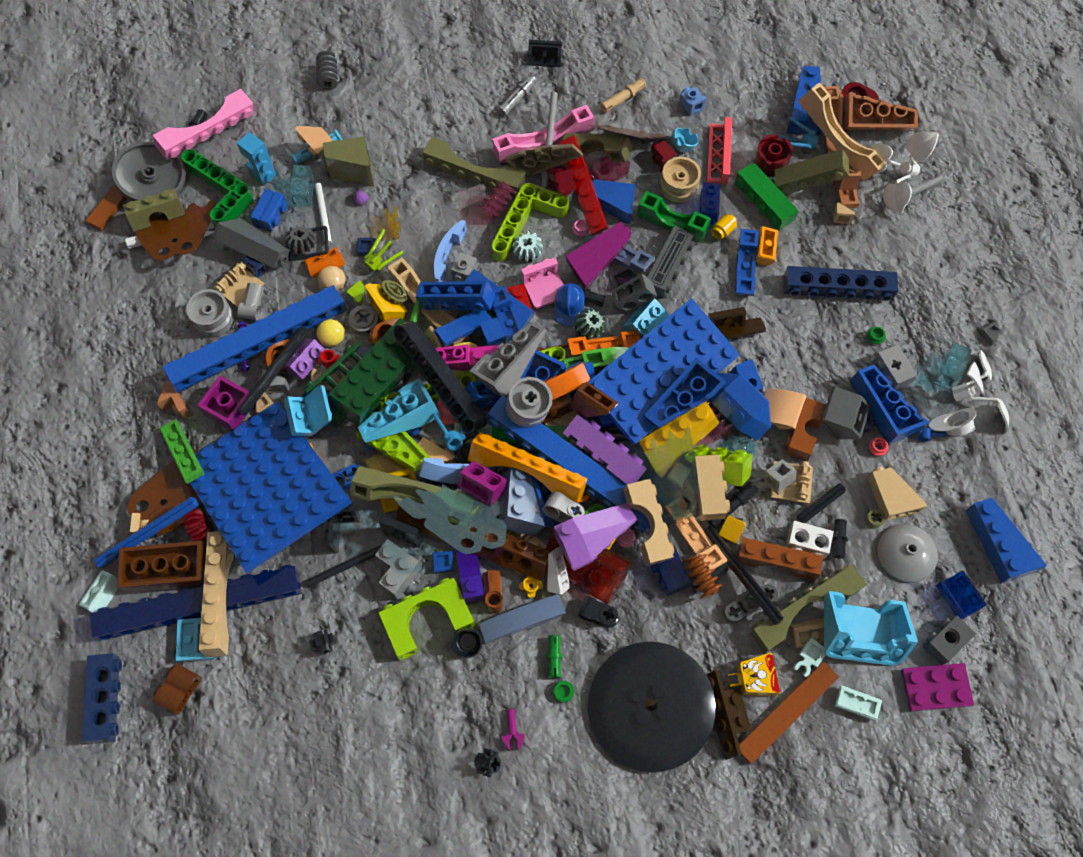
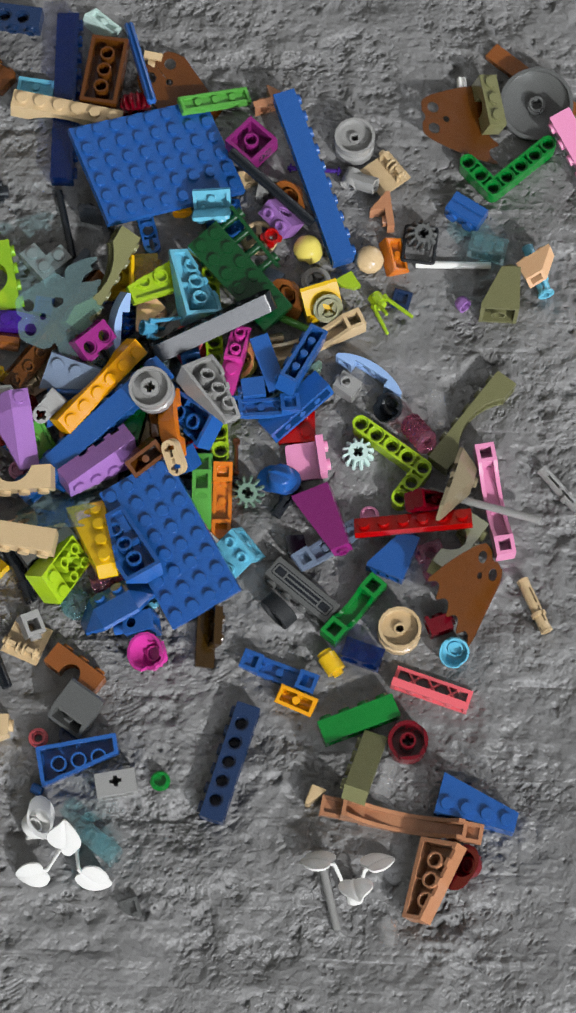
camera: 105 degrees right, 5 degrees up
(251, 242) = (426, 188): dark grey slope -> none
(258, 268) = (403, 190): dark blue bush -> none
(259, 162) = (519, 203): dark azure arch -> none
(276, 274) = (383, 209): none -> nougat slope
(393, 225) = (418, 327): clear yellow plate -> none
(477, 230) = (388, 407): none -> black hair
(587, 367) = (174, 457): none -> tan beam
(633, 293) = (267, 540): dark grey brick -> none
(692, 100) = (503, 684): medium blue brick -> none
(694, 271) = (278, 610): none -> black tyre
(772, 367) = (146, 652): none -> dark pink helmet
(784, 407) = (102, 651): light nougat slope -> none
(808, 140) = (420, 790): dark azure plant -> none
(818, 106) = (430, 804): tan arch -> none

